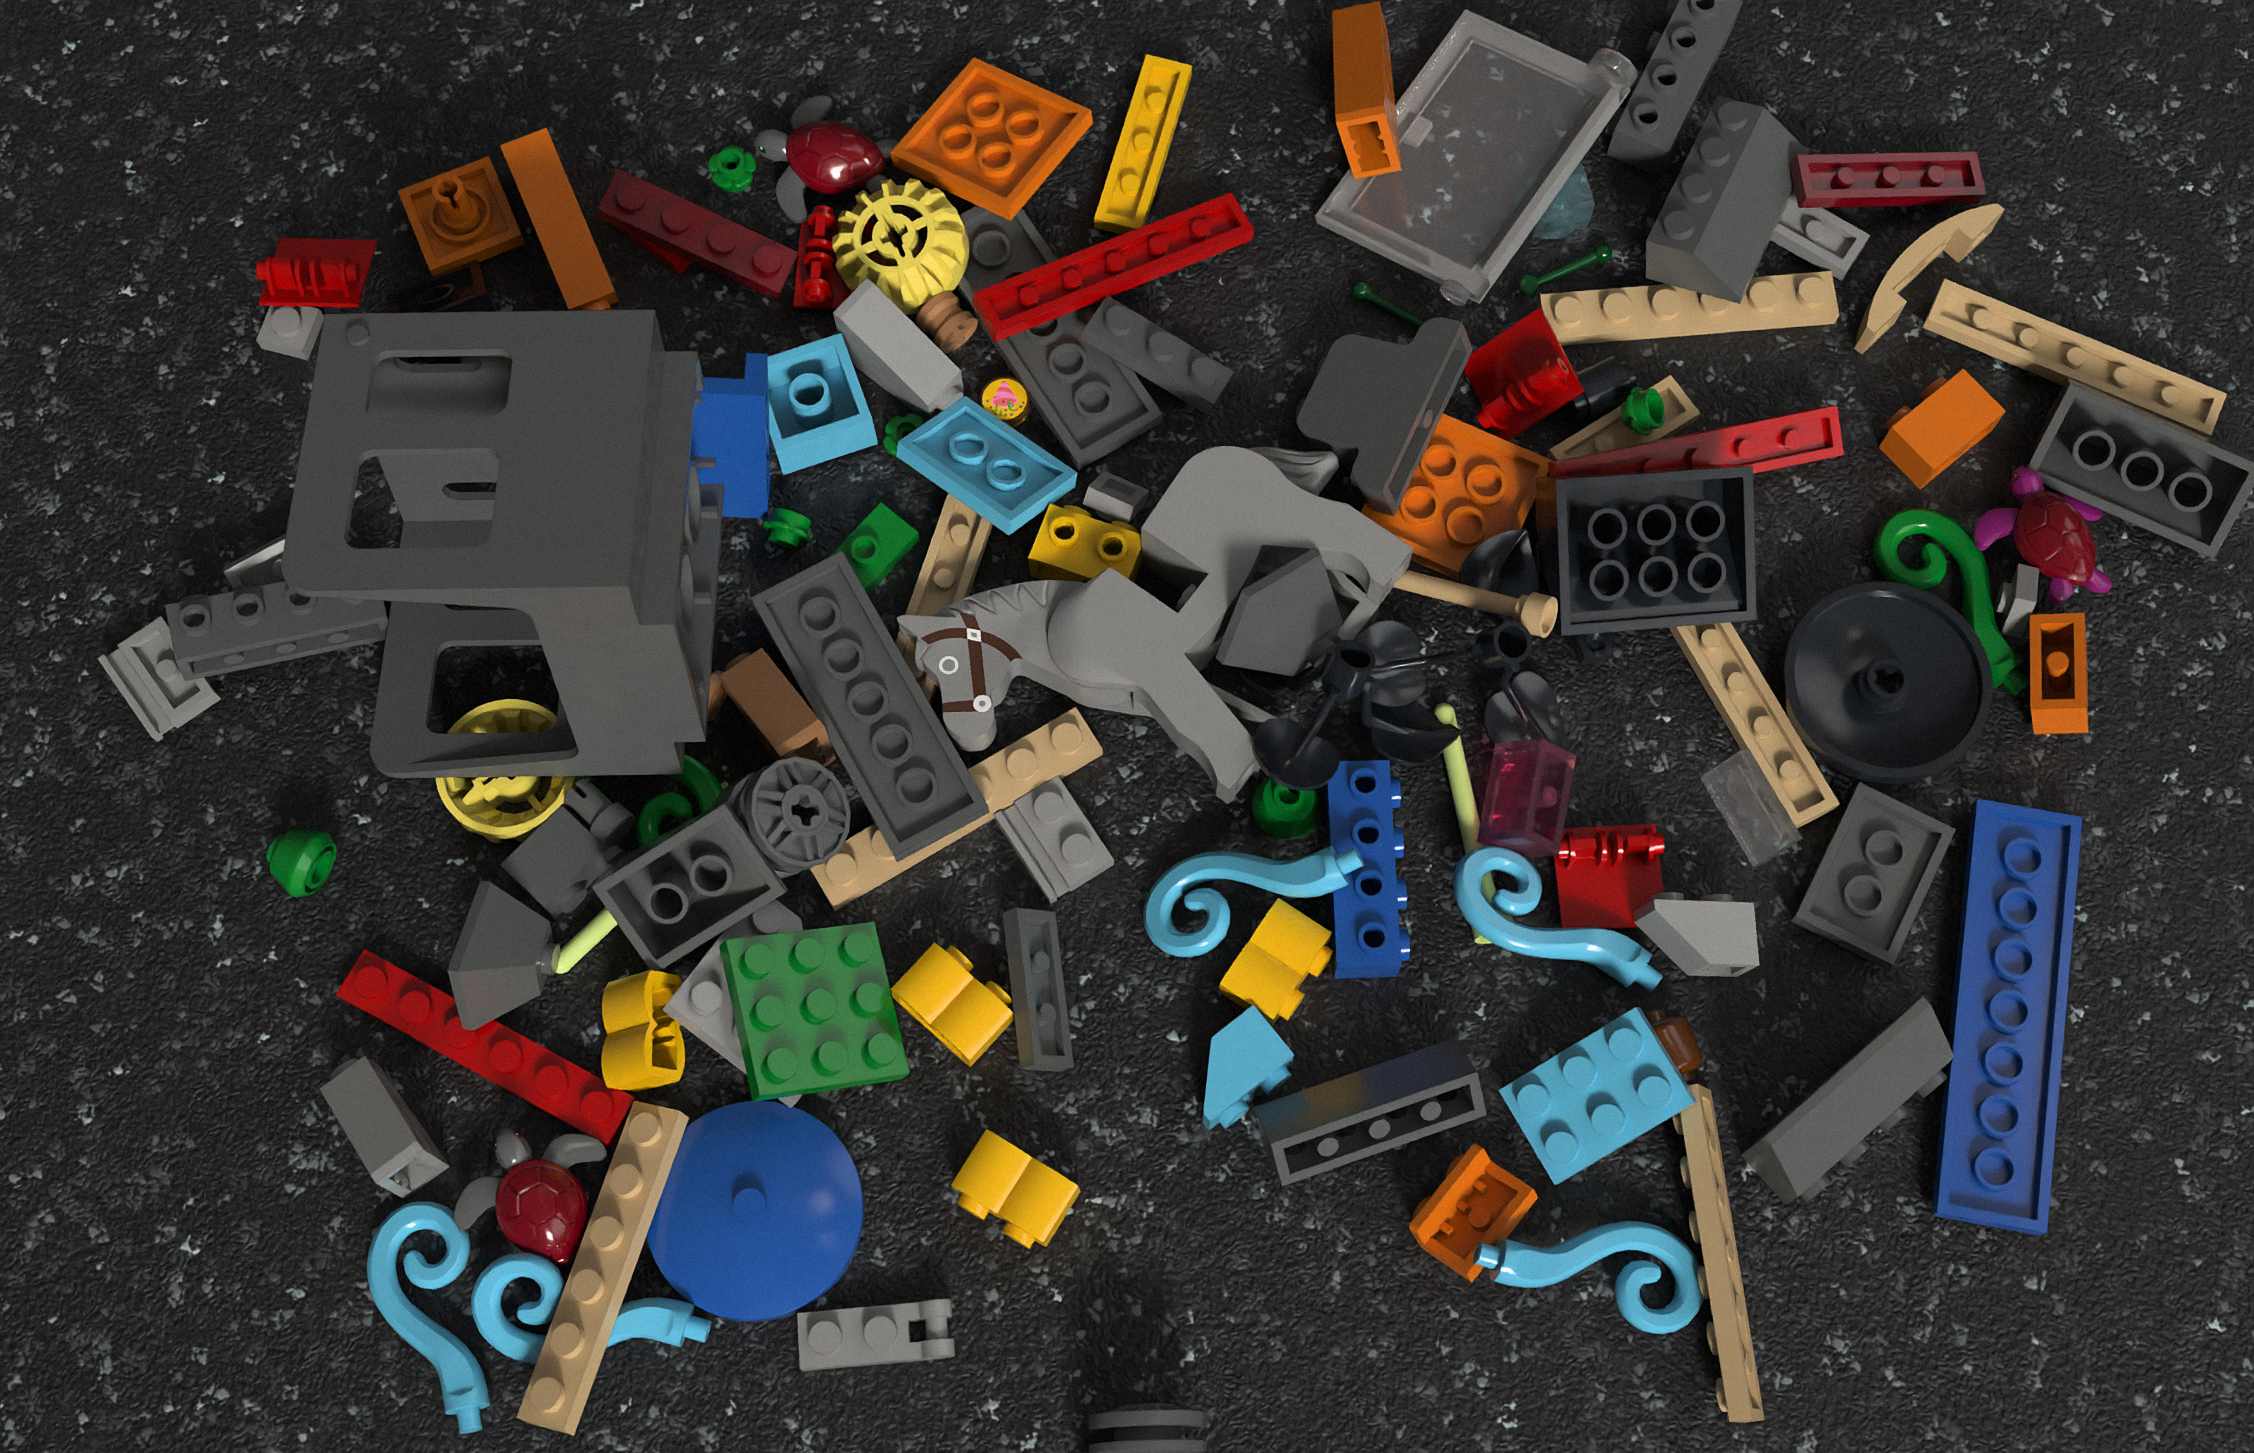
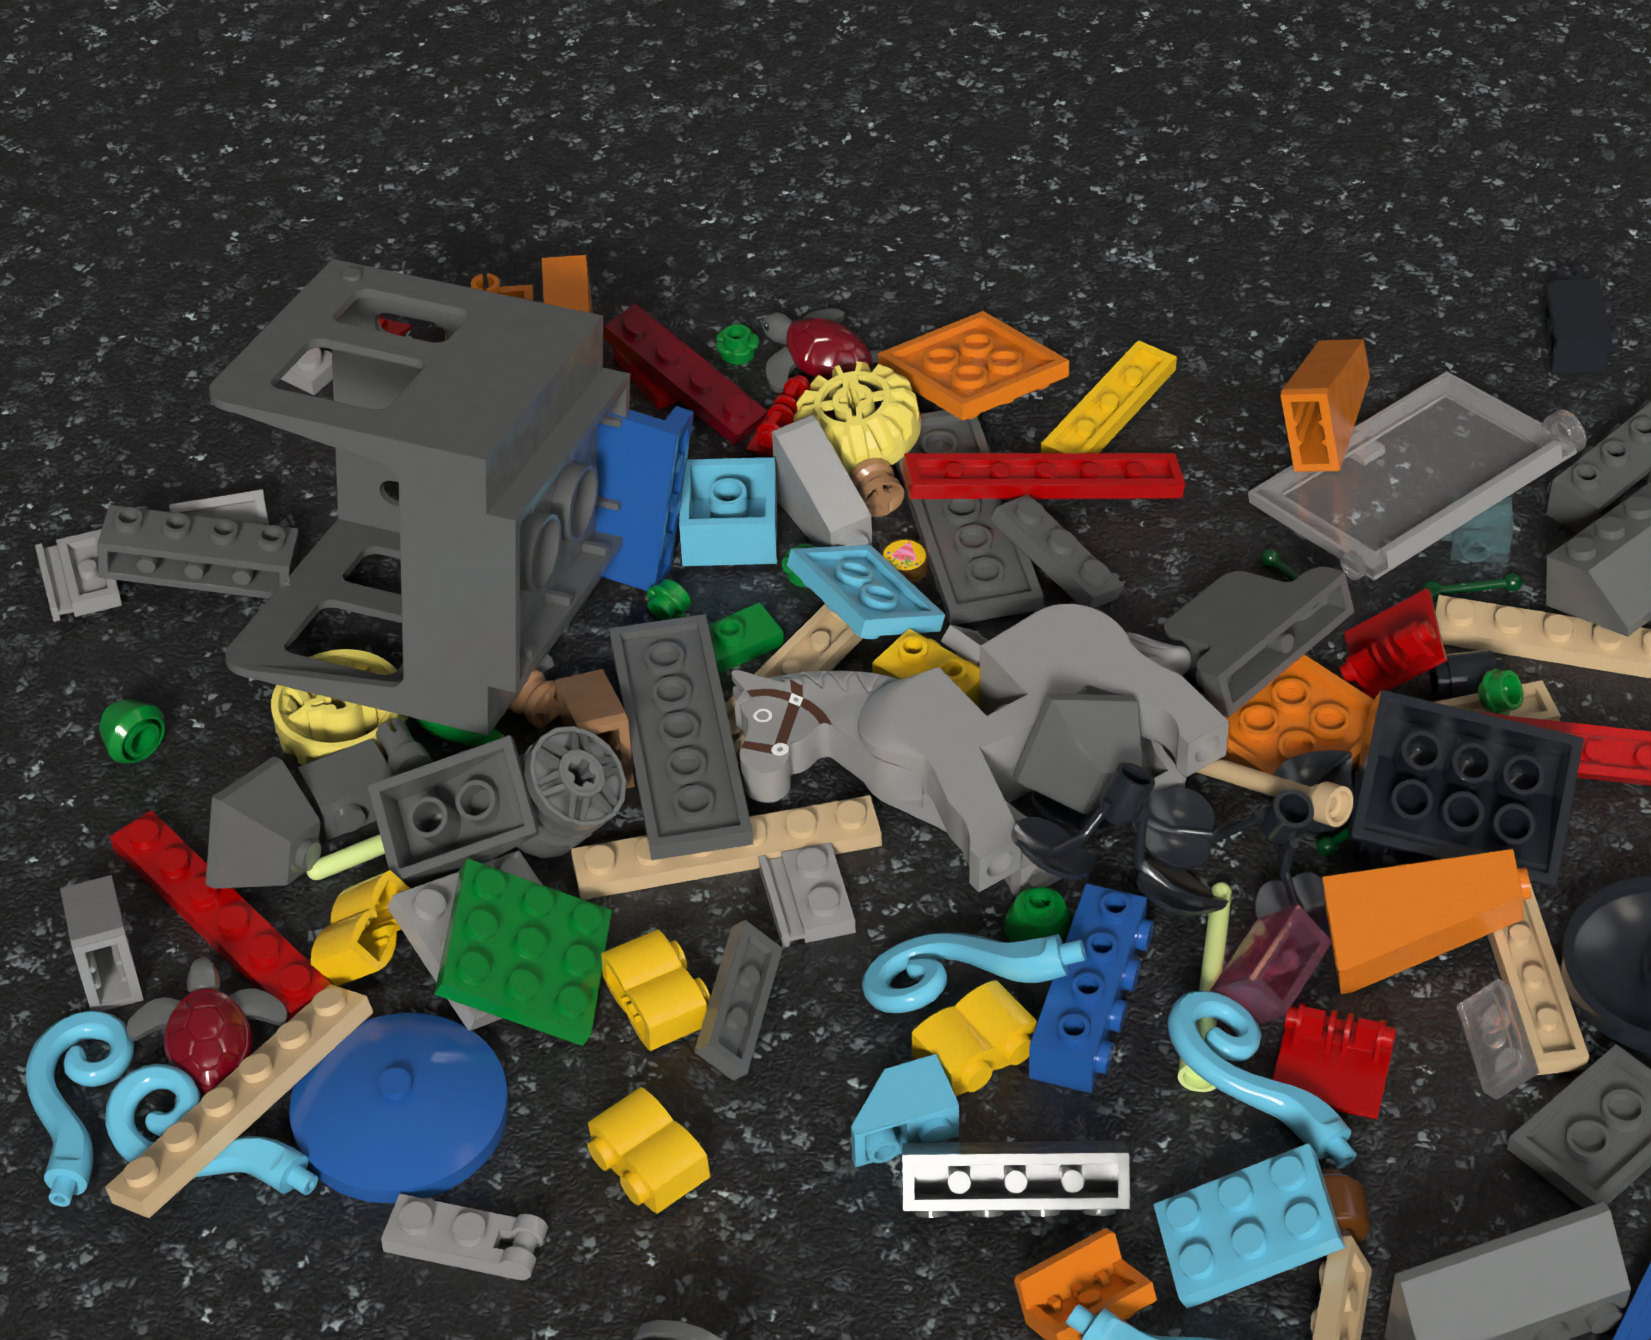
camera: 20 degrees right, 25 degrees down
(1635, 701) = (1418, 911): none -> orange slope
(1702, 935) = (1406, 1123): light grey slope -> none

